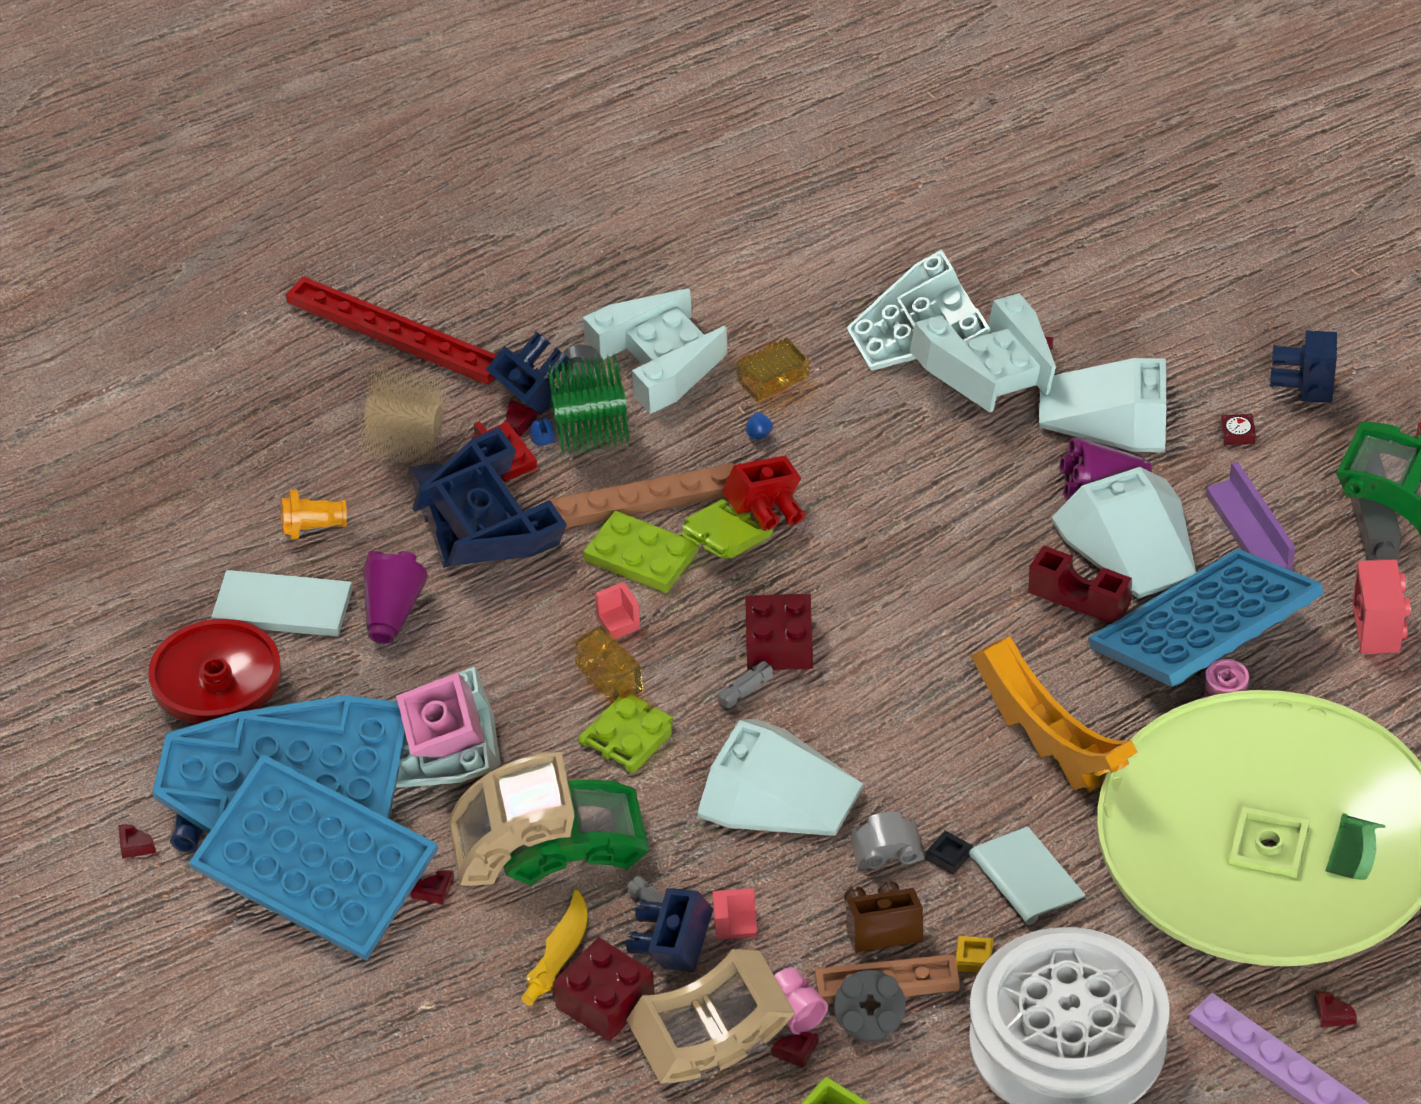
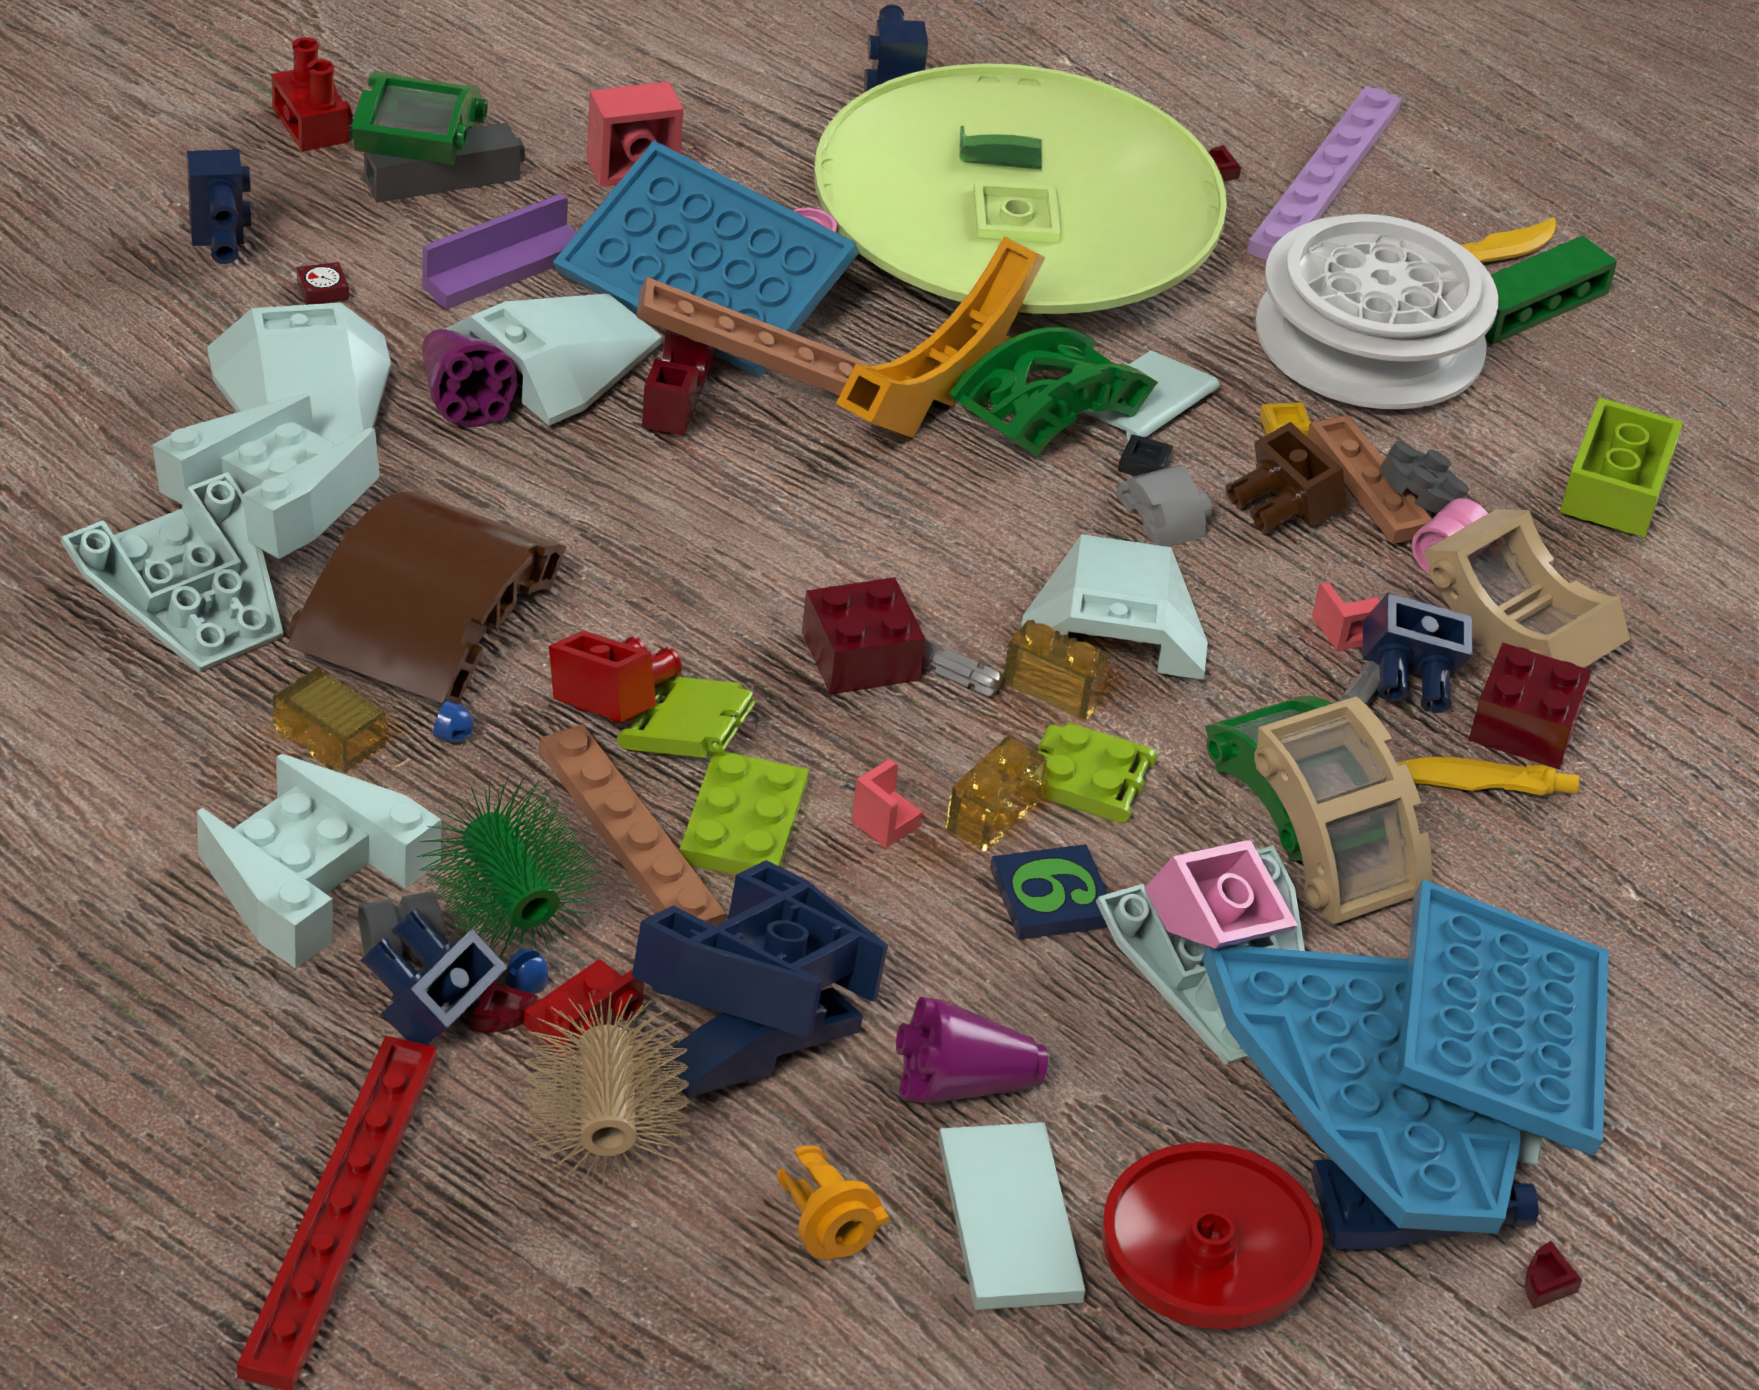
camera: 115 degrees left, 5 degrees down
(525, 685) = (1050, 890): none -> dark blue tile
(711, 726) = (1056, 669): none -> clear yellow brick
(877, 417) = (418, 593): none -> reddish brown panel
(1031, 759) = (1048, 404): none -> green fence
(1082, 615) = (744, 336): none -> nougat plate

